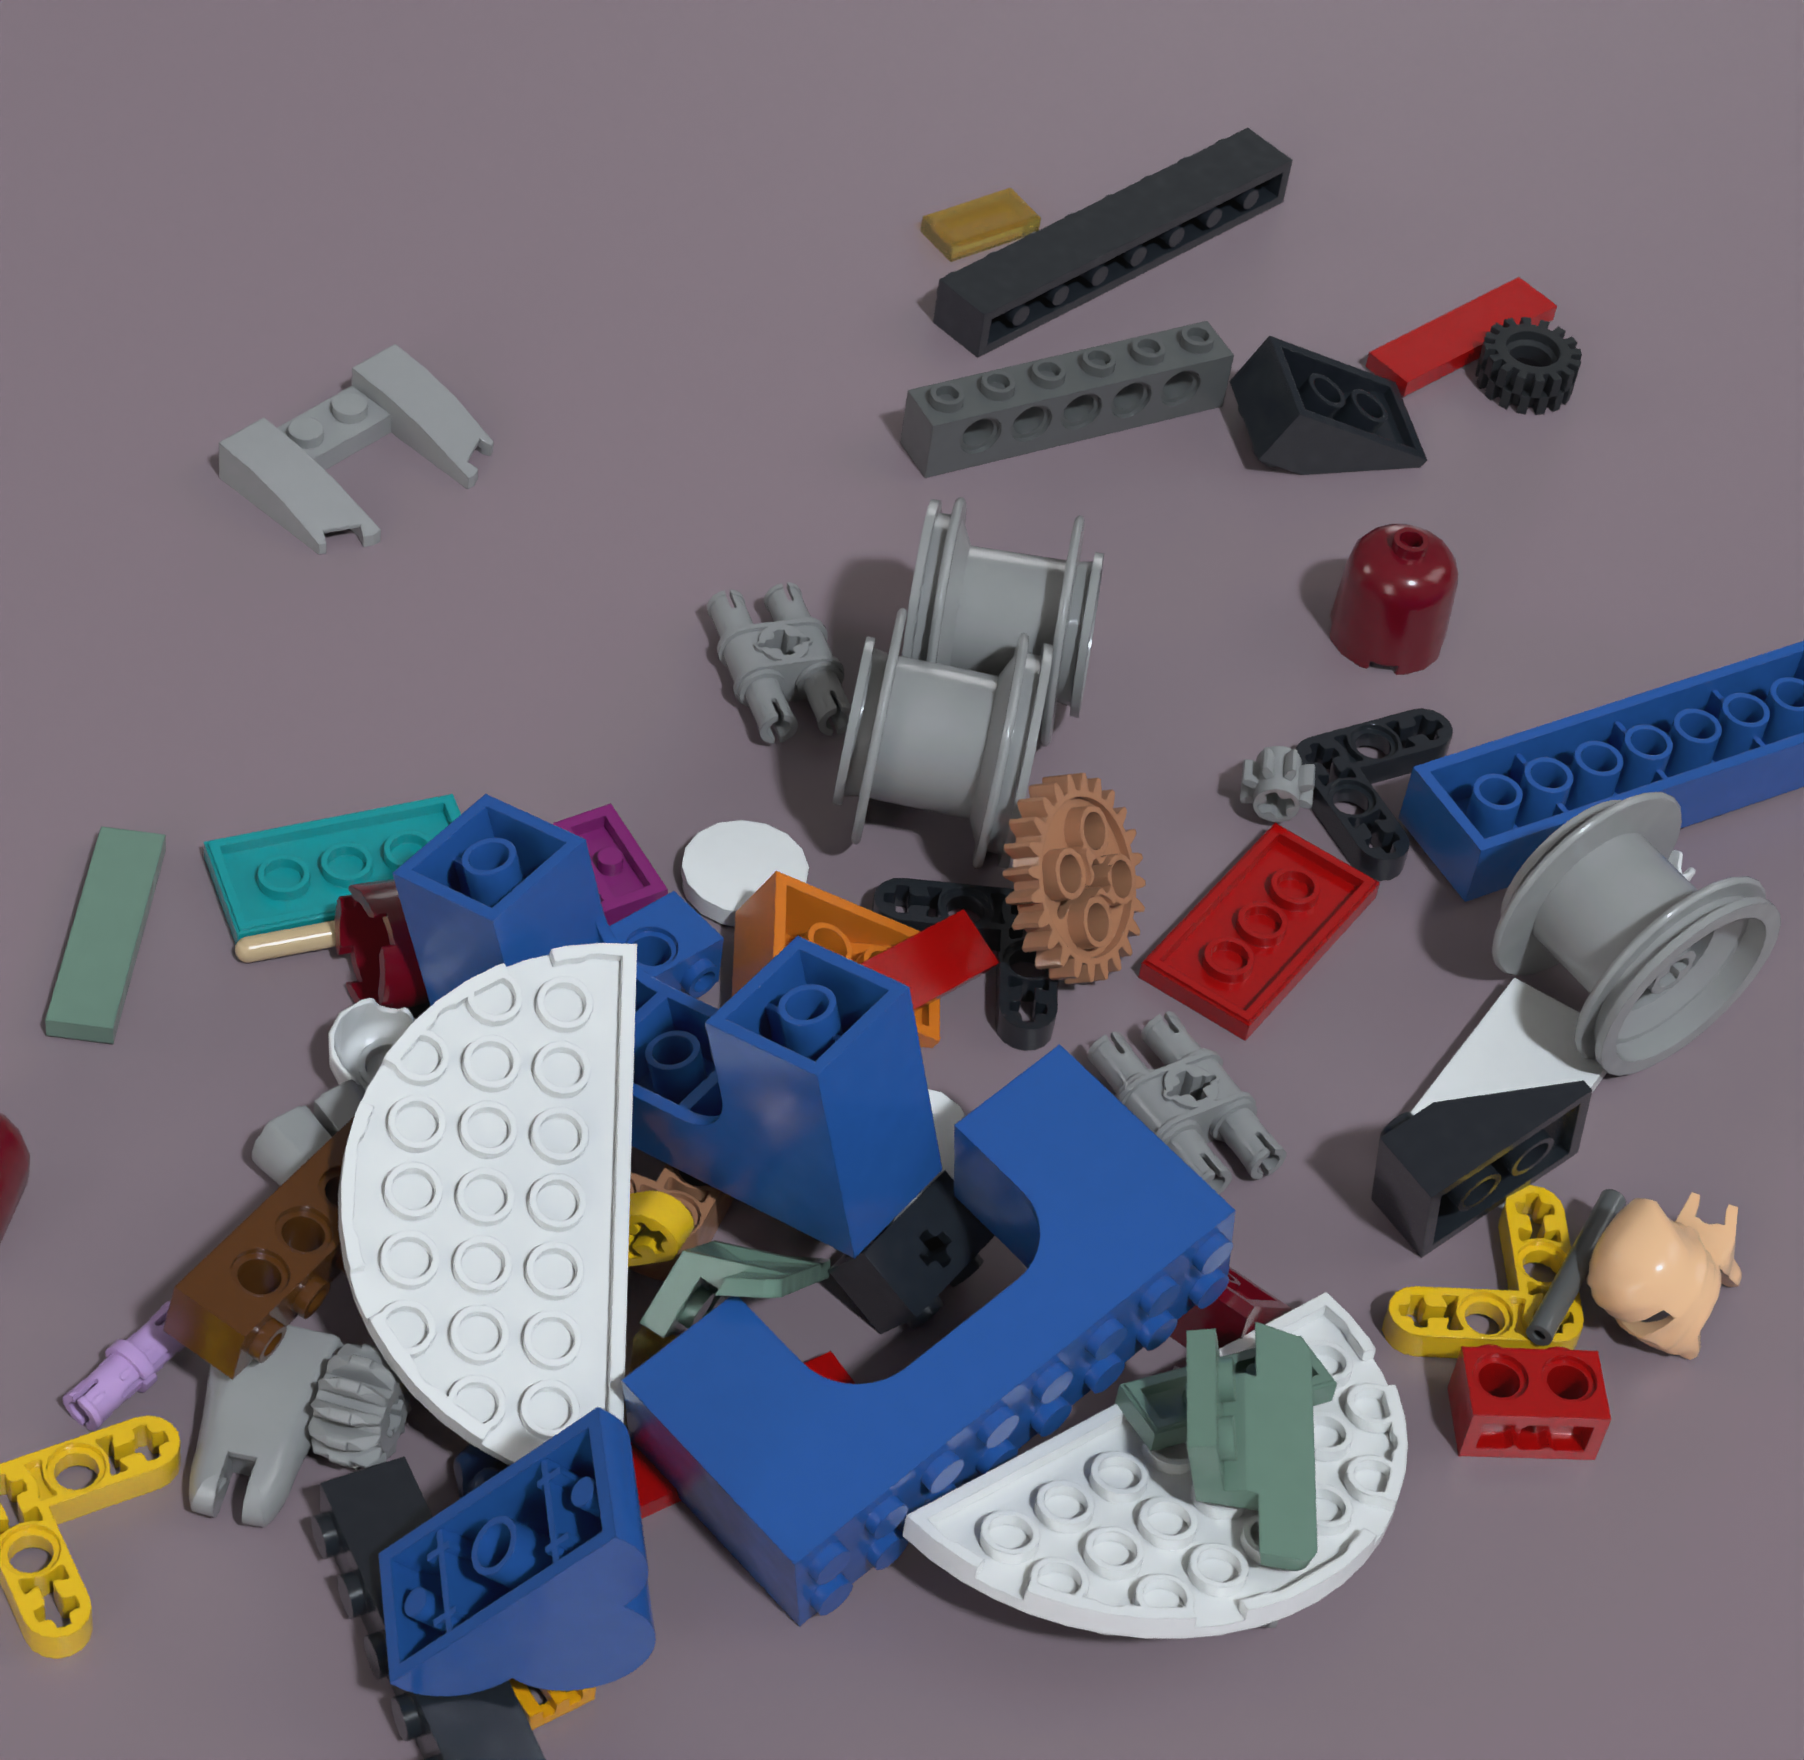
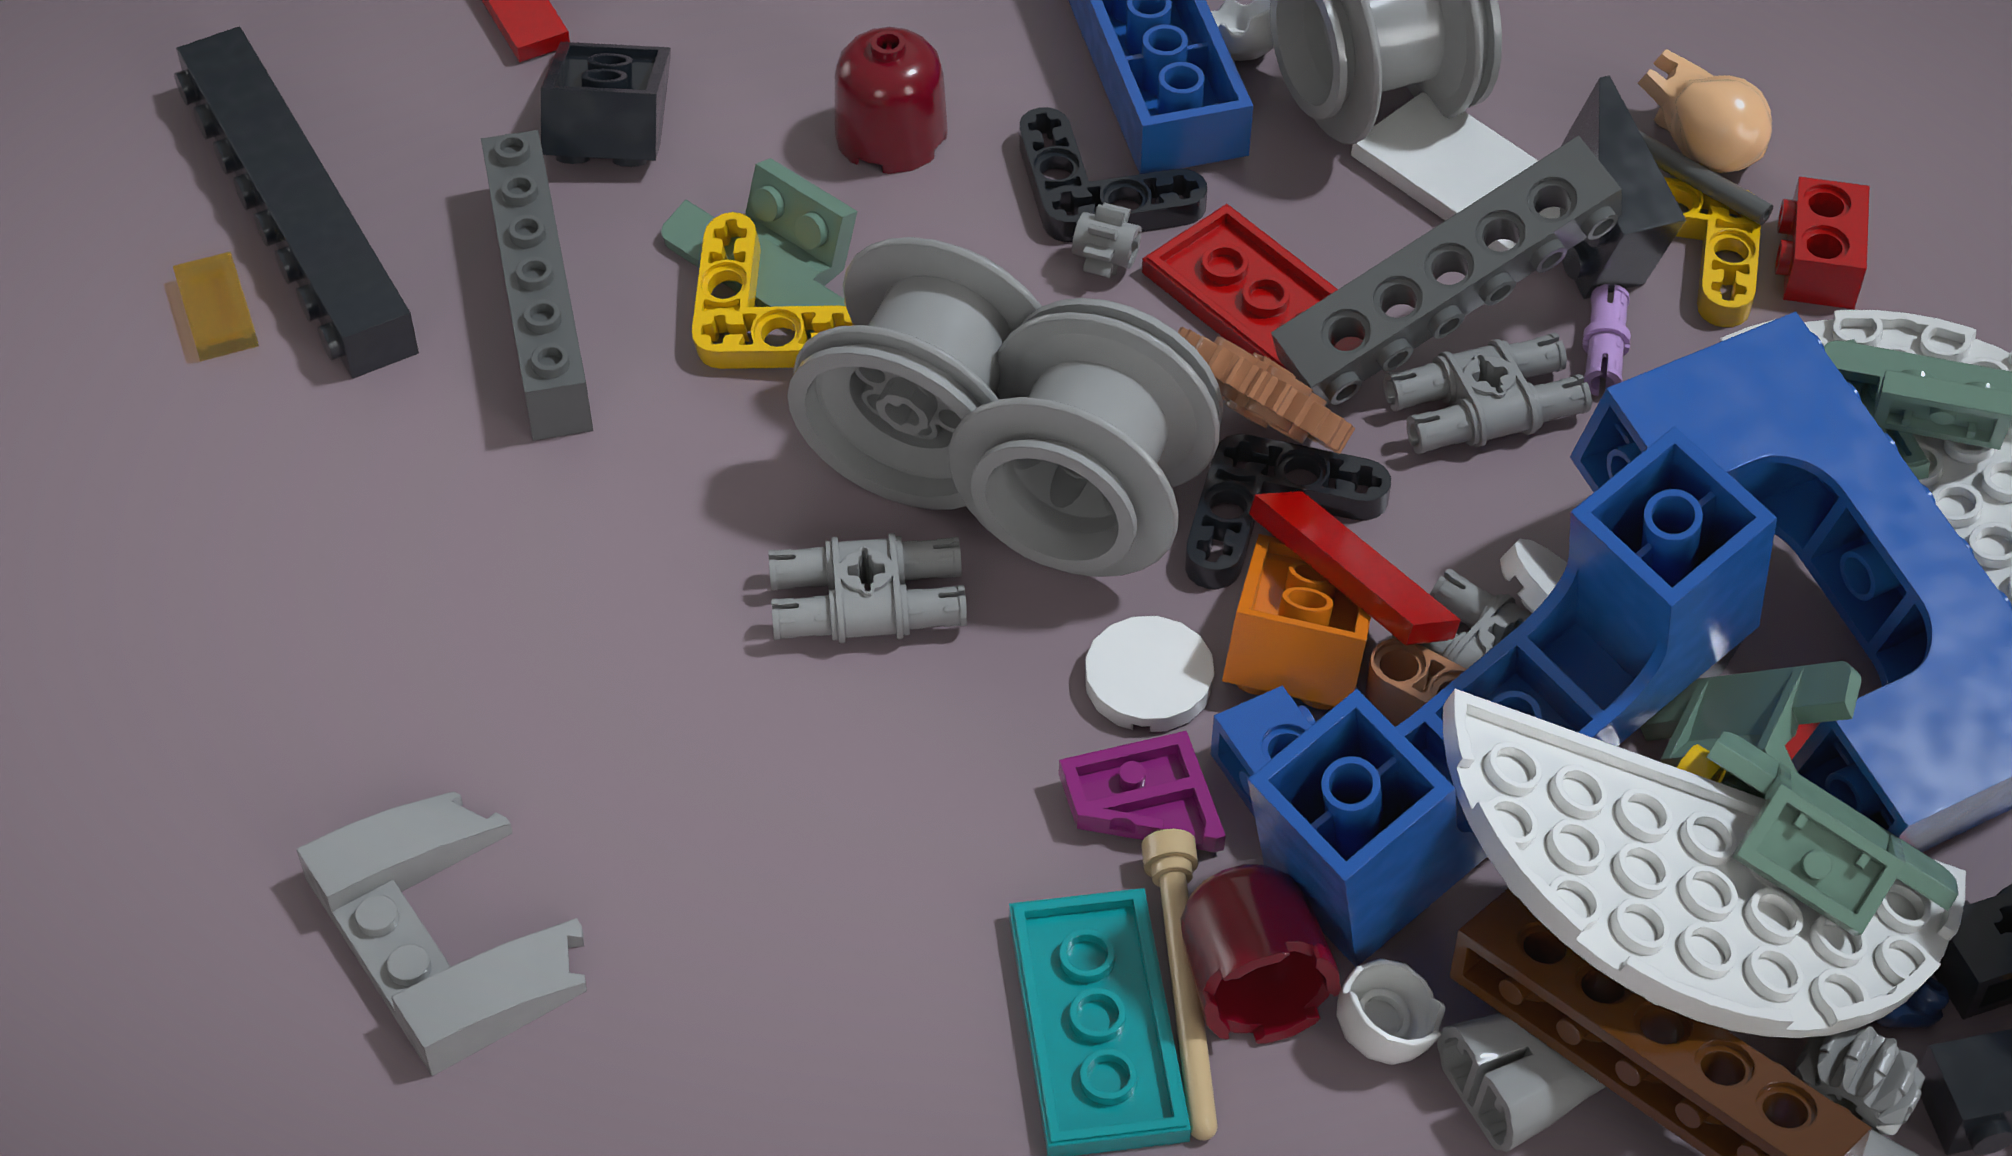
camera: 70 degrees left, 5 degrees up
(582, 1293) = (1823, 846): none -> sand green plate
(1148, 520) = (738, 313): none -> yellow beam
(1175, 556) = (799, 232): none -> sand green plate
(1282, 1006) = (1563, 179): none -> dark grey brick
(1307, 1211) = (1606, 337): none -> lavender pin

